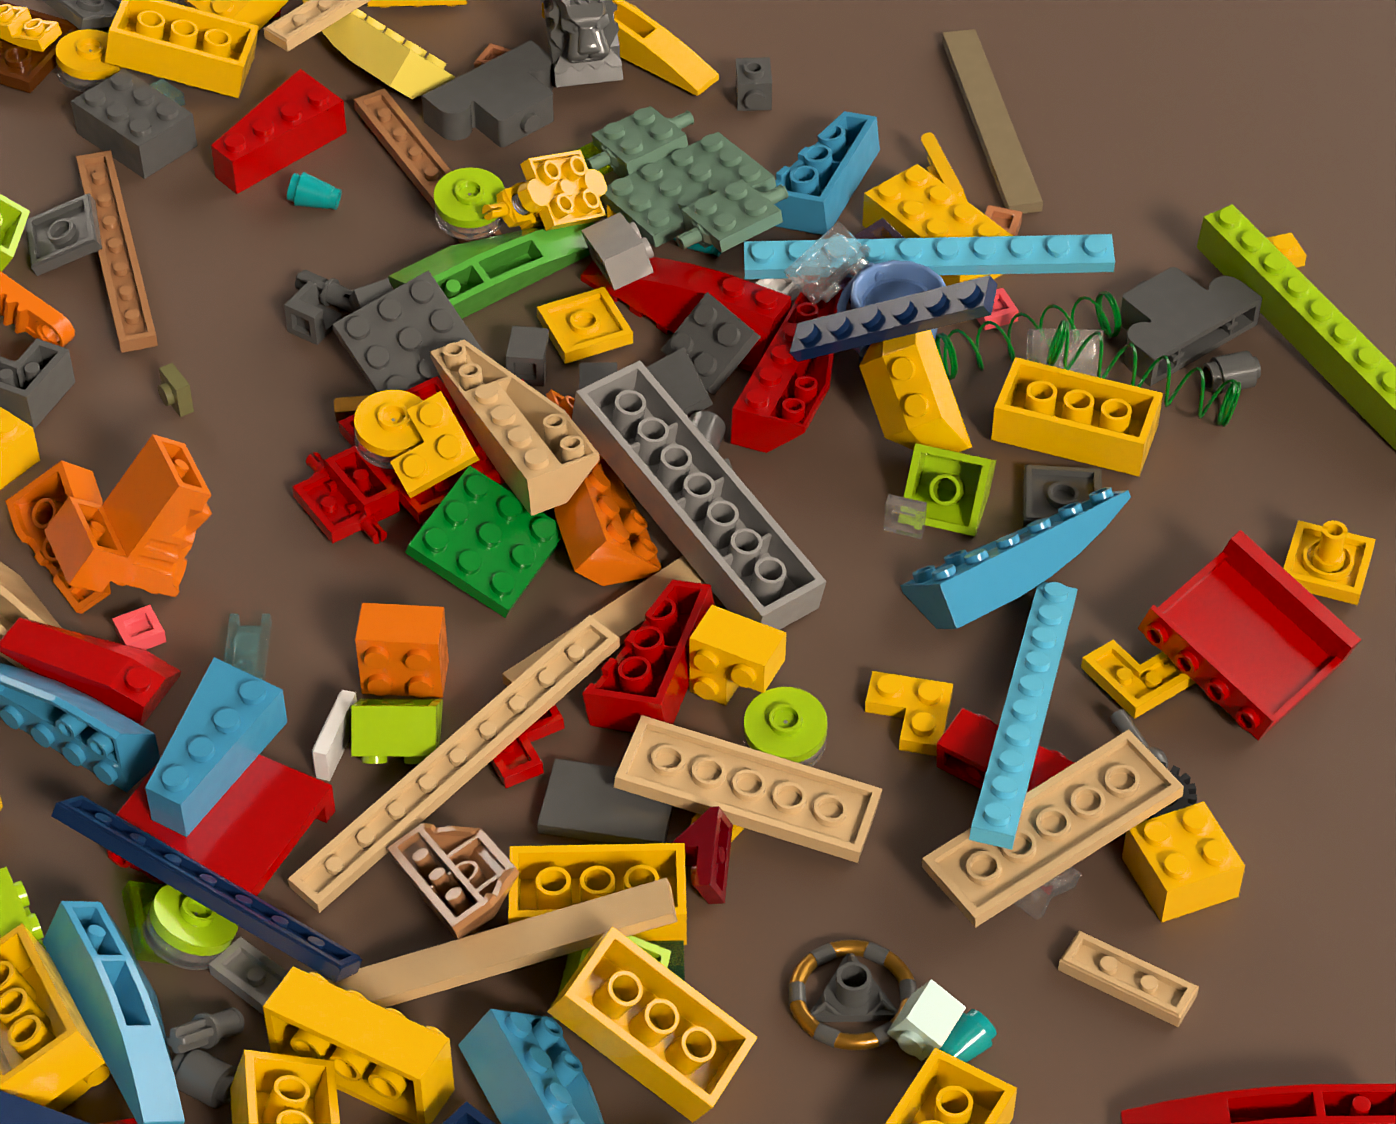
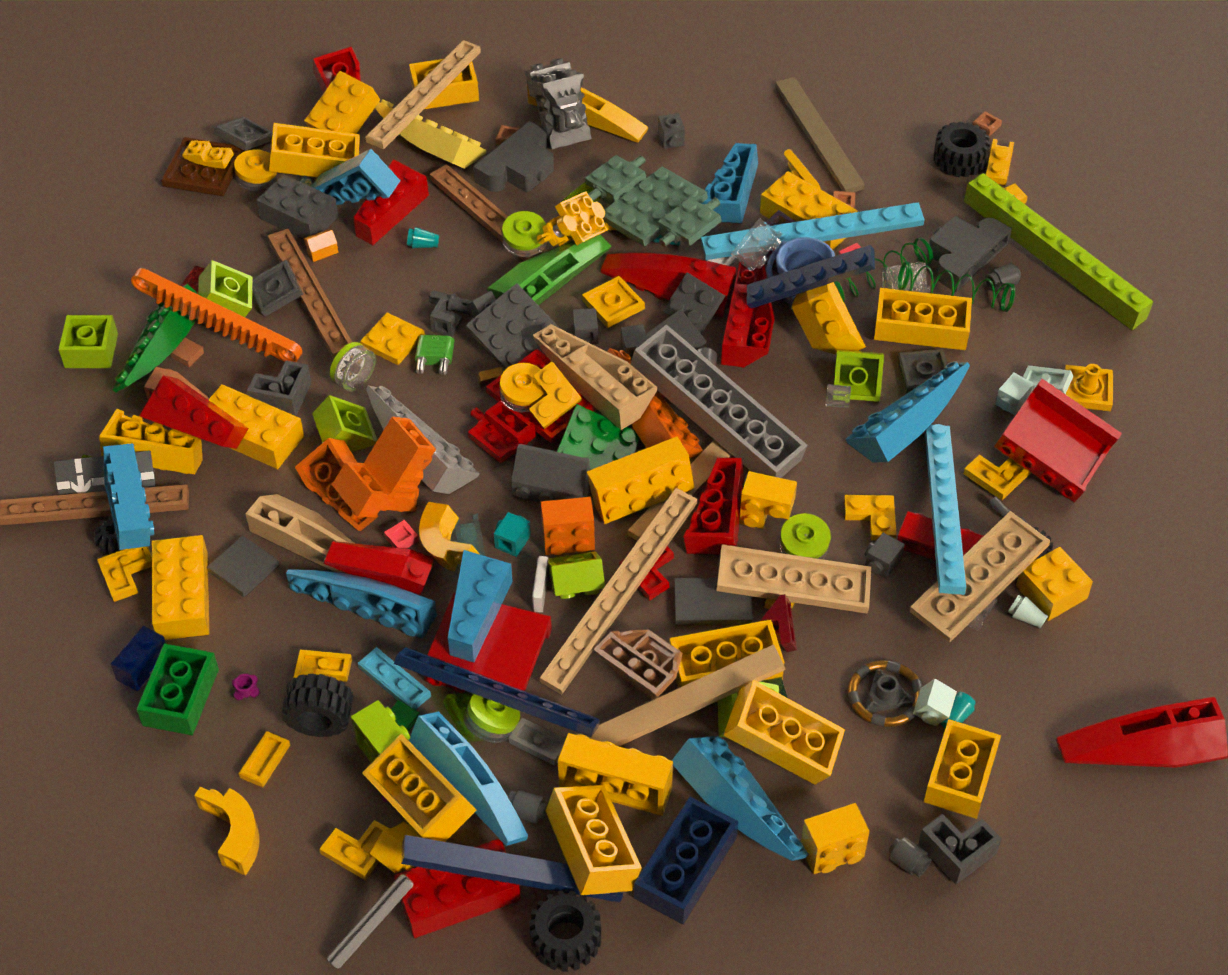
camera: 10 degrees left, 5 degrees up
(46, 902) = (405, 715): none -> green tile
(59, 848) = (394, 679): none -> medium azure tile
(100, 442) = (345, 422): none -> lime slope
(134, 362) = (352, 366): none -> clear piece
(154, 182) = (321, 245): none -> light orange piece
(175, 390) = (376, 377): olive plate -> none
(193, 630) = (435, 534): none -> yellow arch
(205, 1030) = (520, 778): dark grey axle -> none
(221, 334) = (392, 338): none -> yellow plate
(233, 88) = (358, 179): none -> dark azure wedge
(240, 531) = (448, 467): none -> light grey wedge
(279, 361) = (434, 351): none -> bright green piece
(314, 651) = (512, 534): none -> teal brick
(397, 567) = (549, 475): none -> dark grey slope
(537, 595) = (640, 479): none -> yellow brick
(619, 250) = (623, 252): light grey brick -> none
(910, 774) = (884, 555): none -> dark grey brick
(1125, 899) = (1027, 611): none -> light aqua cone
(1128, 978) = (1039, 658): tan tile -> none
(1195, 549) = (1014, 393): none -> light aqua brick
(1214, 168) = (961, 149): none -> black tyre
(1271, 138) = (988, 123): none -> nougat tile
(1274, 538) = (1057, 377): none -> light aqua plate
(1275, 199) = (999, 162): none -> yellow hinge

